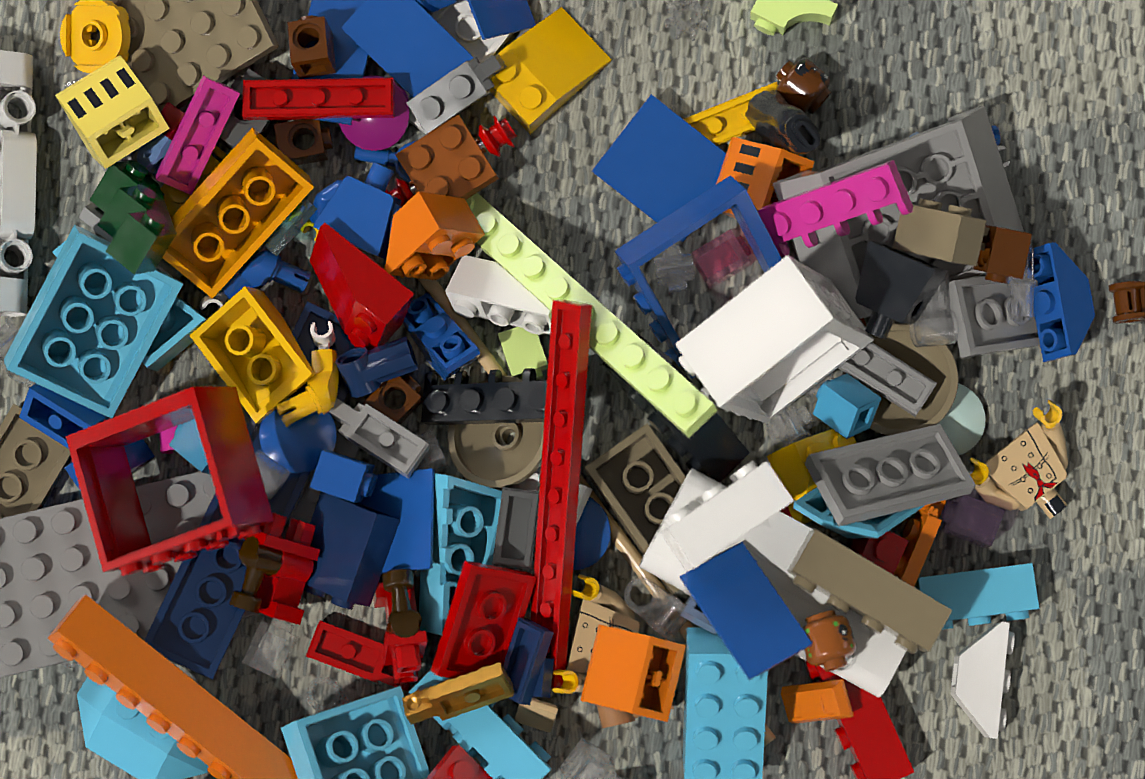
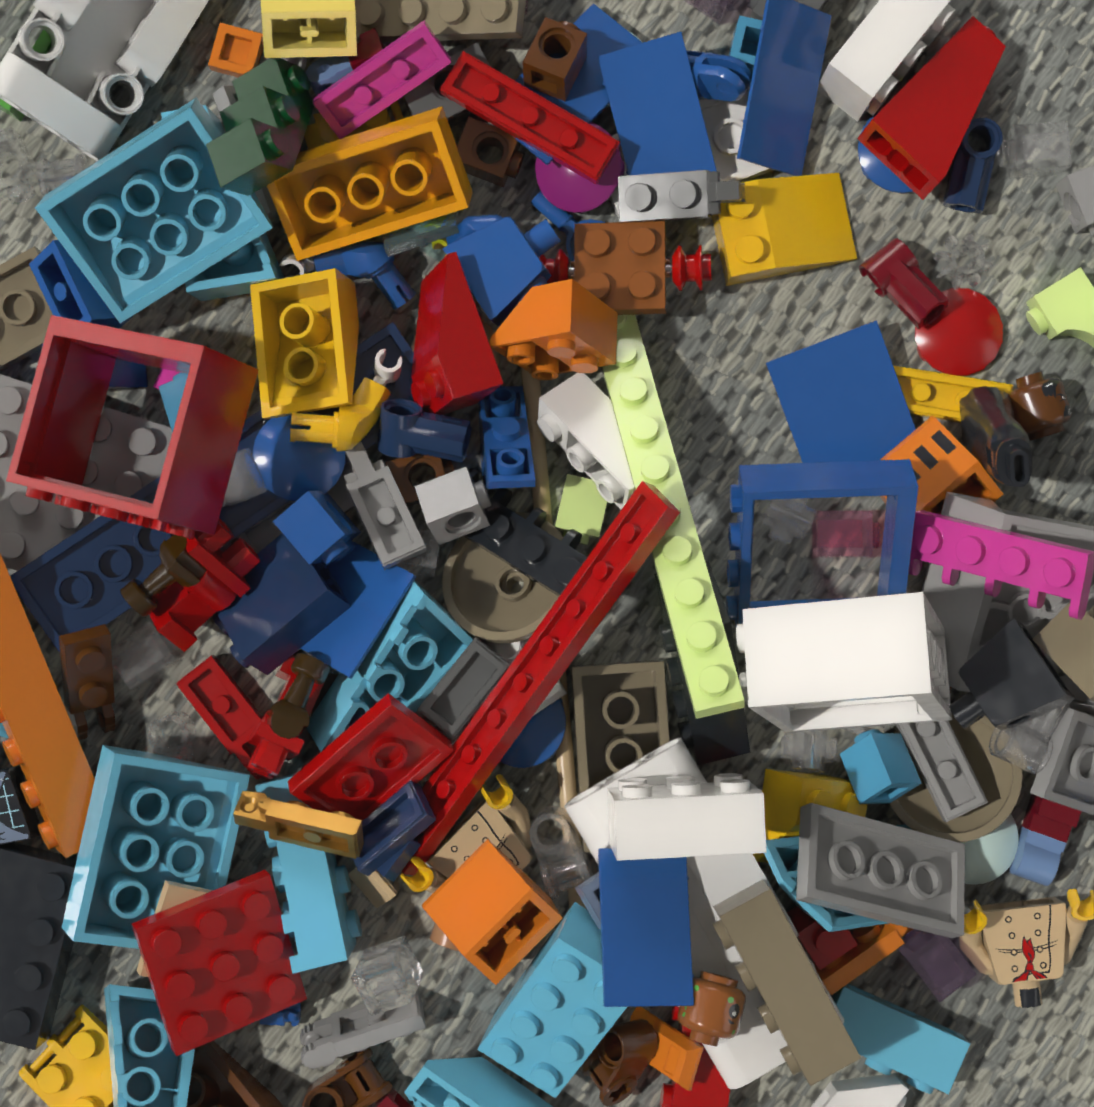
camera: 30 degrees right, 5 degrees up
(76, 177) = (235, 50): none -> orange plate
(241, 685) = (88, 677): none -> reddish brown hinge
(430, 402) = (454, 505): none -> light grey brick
(650, 55) = (900, 279): none -> dark red piece
(715, 67) = (963, 336): none -> red dish
(789, 727) = (621, 1059): none -> reddish brown piece
(995, 388) = (1043, 839): none -> leg

